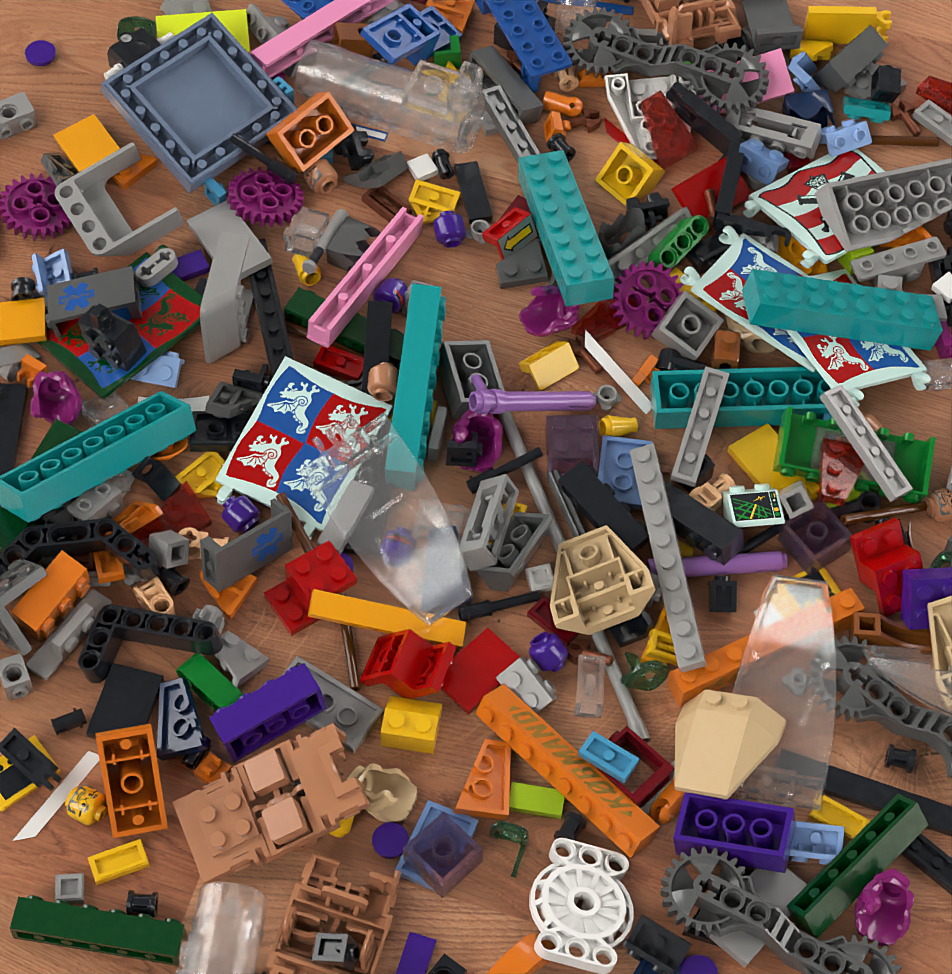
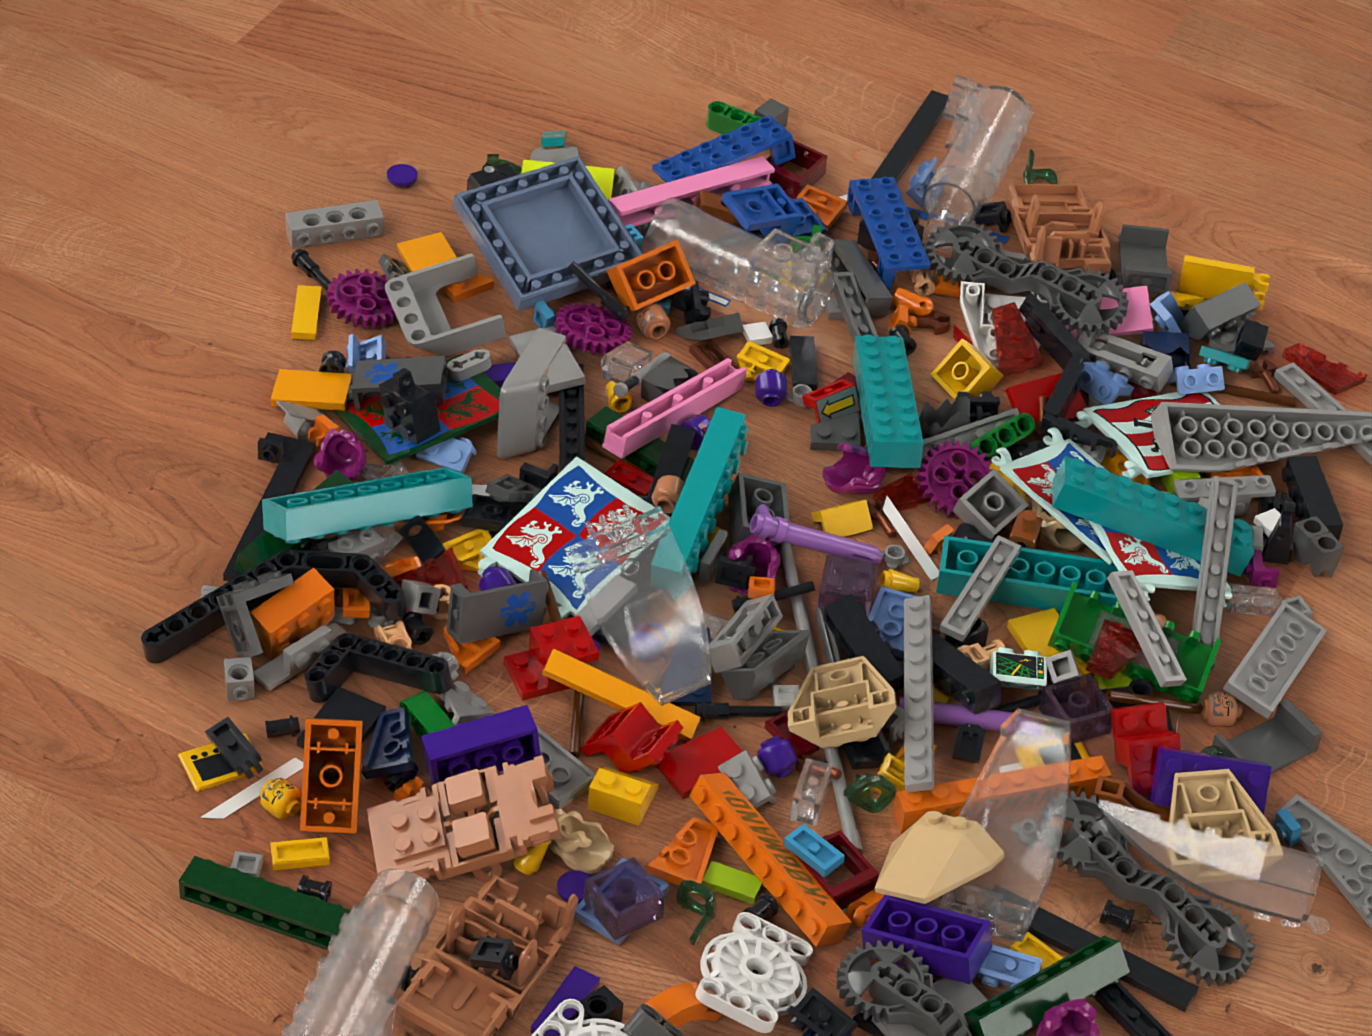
camera: 10 degrees right, 15 degrees down
(492, 465) = (760, 586): none -> orange tile
(910, 350) = (1215, 560): none -> light grey tile

